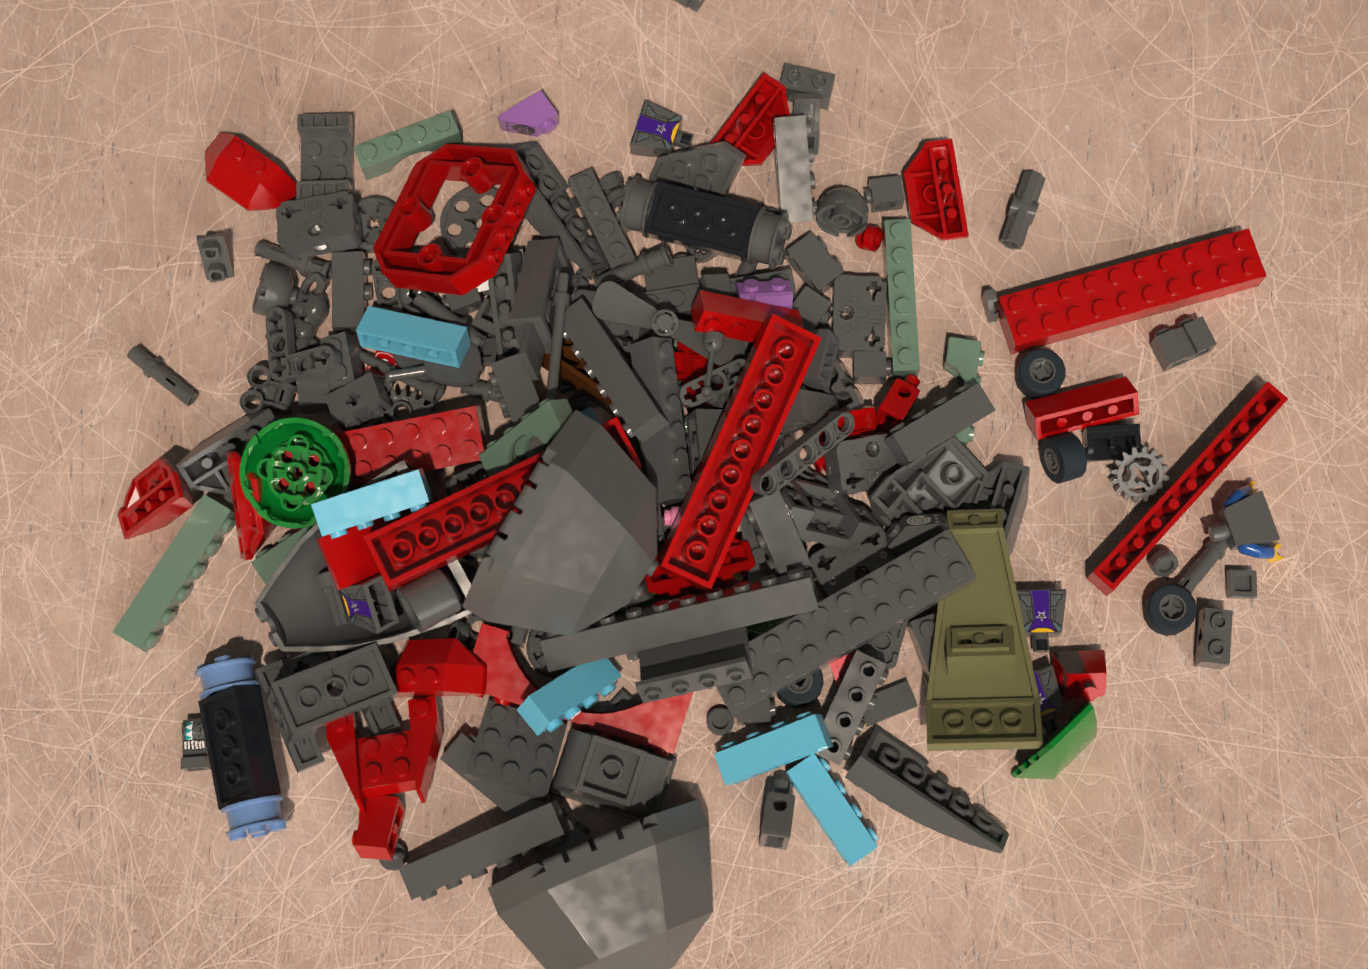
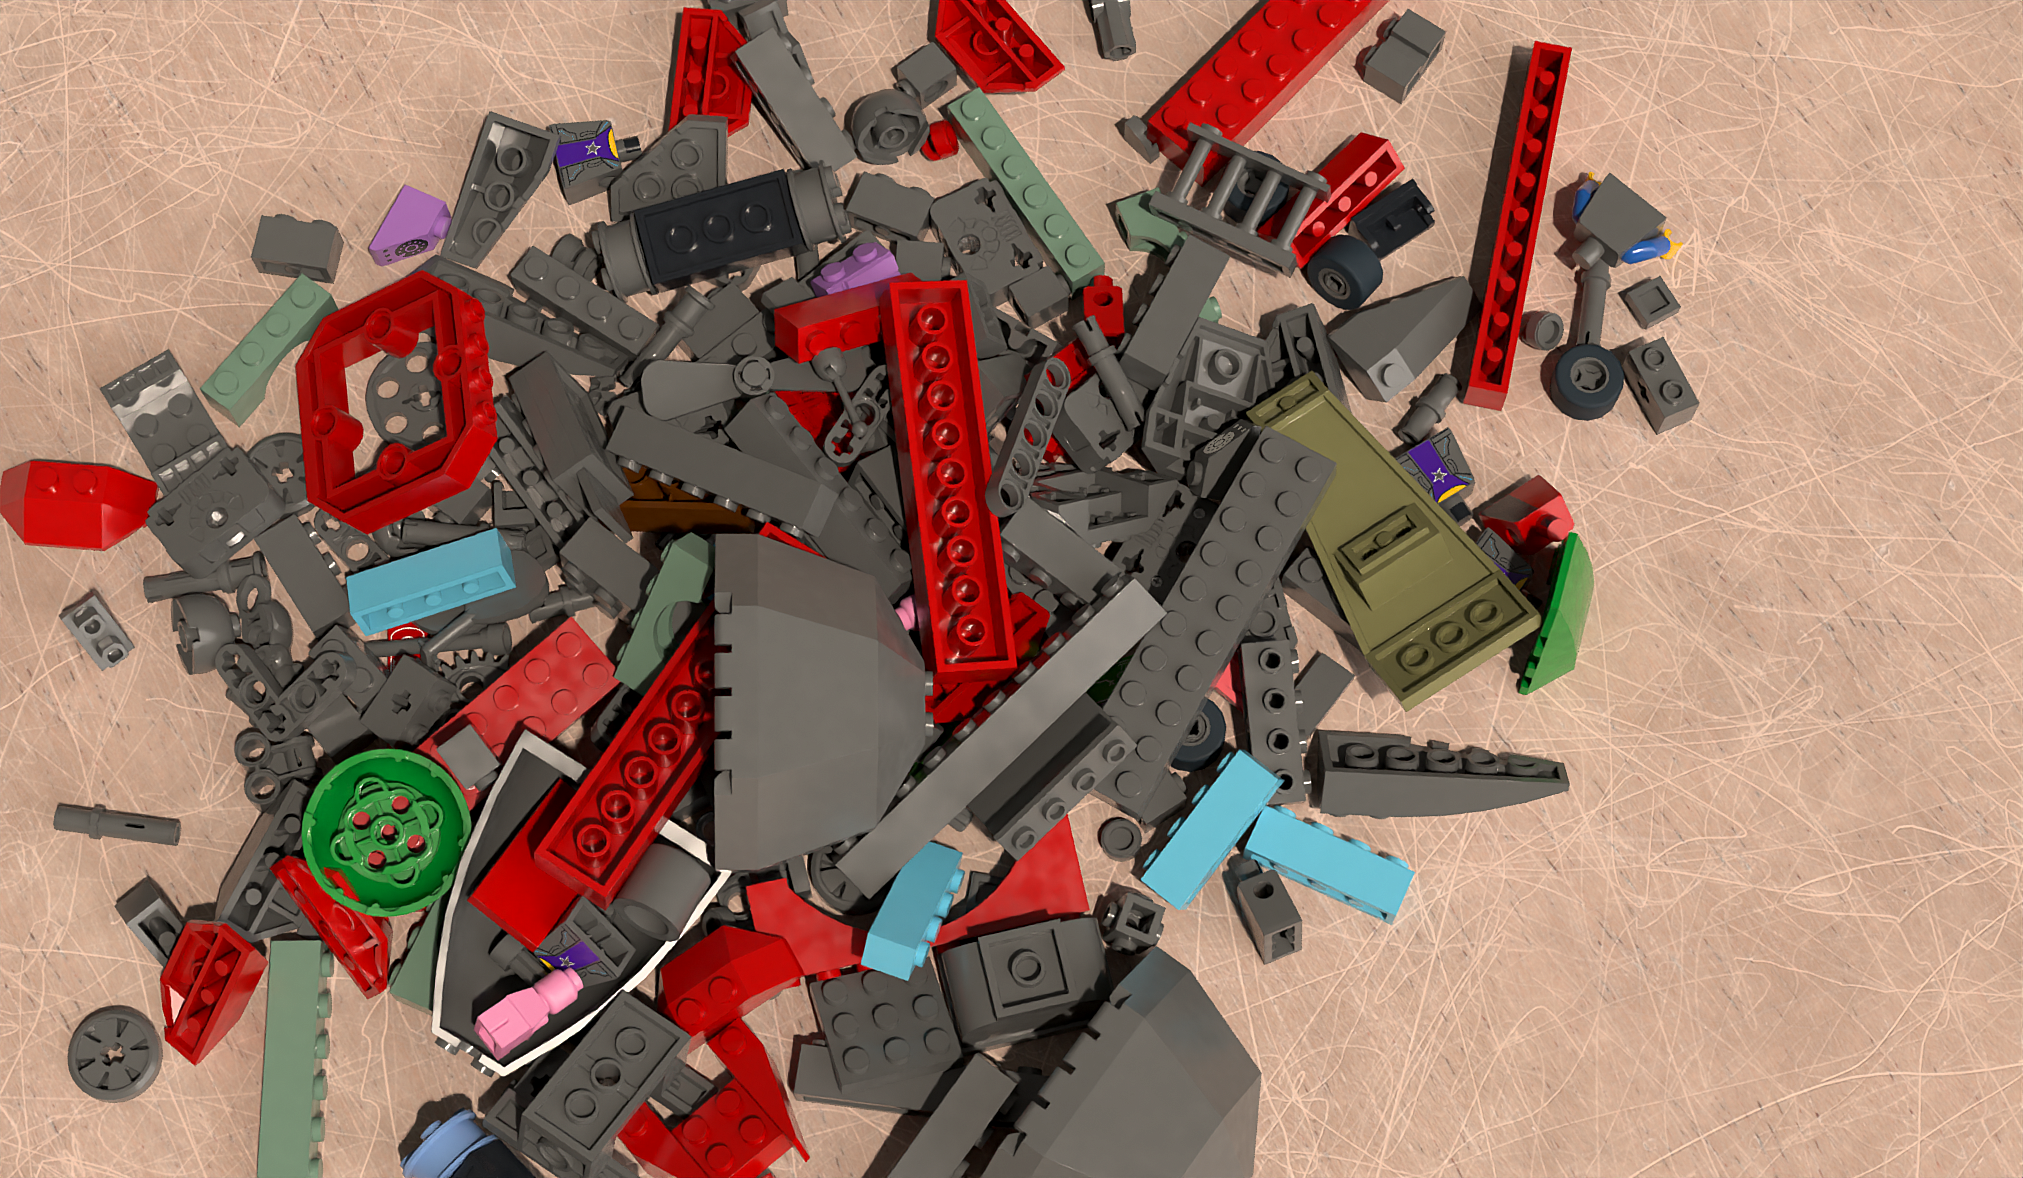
camera: 30 degrees left, 5 degrees down
(69, 501) = (108, 1032): none -> dark grey wheel
(147, 442) = (151, 921): none -> dark grey slope
(315, 622) = (526, 1011): none -> bright pink piece
(366, 458) = (471, 759): none -> brick
(372, 502) = (516, 806): medium azure brick -> none
(458, 93) = (297, 247): none -> dark grey brick
(560, 301) = (602, 427): dark grey bar -> none
(601, 115) = (500, 181): none -> dark grey wedge
(703, 780) = (1143, 917): none -> dark grey brick
(879, 428) = (1110, 372): none -> dark grey pin
(1011, 402) = (1242, 237): none -> dark grey fence
(1063, 571) = (1430, 410): none -> dark grey pin
(1070, 518) = (1399, 339): none -> dark grey wedge
(1148, 468) = (1457, 226): gear -> none

